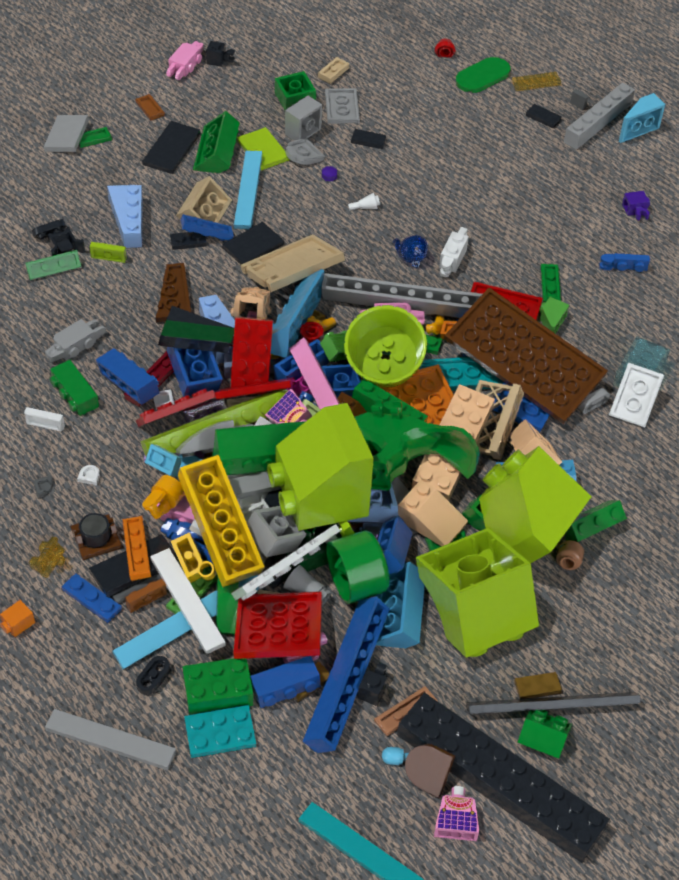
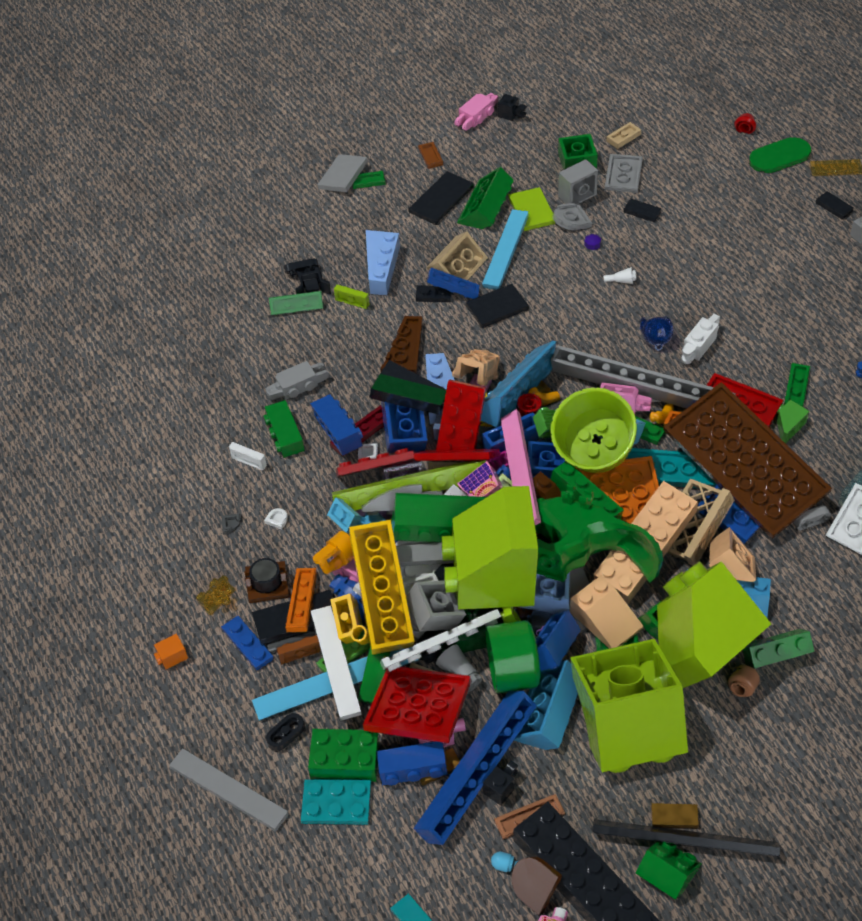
camera: 20 degrees right, 0 degrees up
(292, 262) = (529, 329): tan door -> none

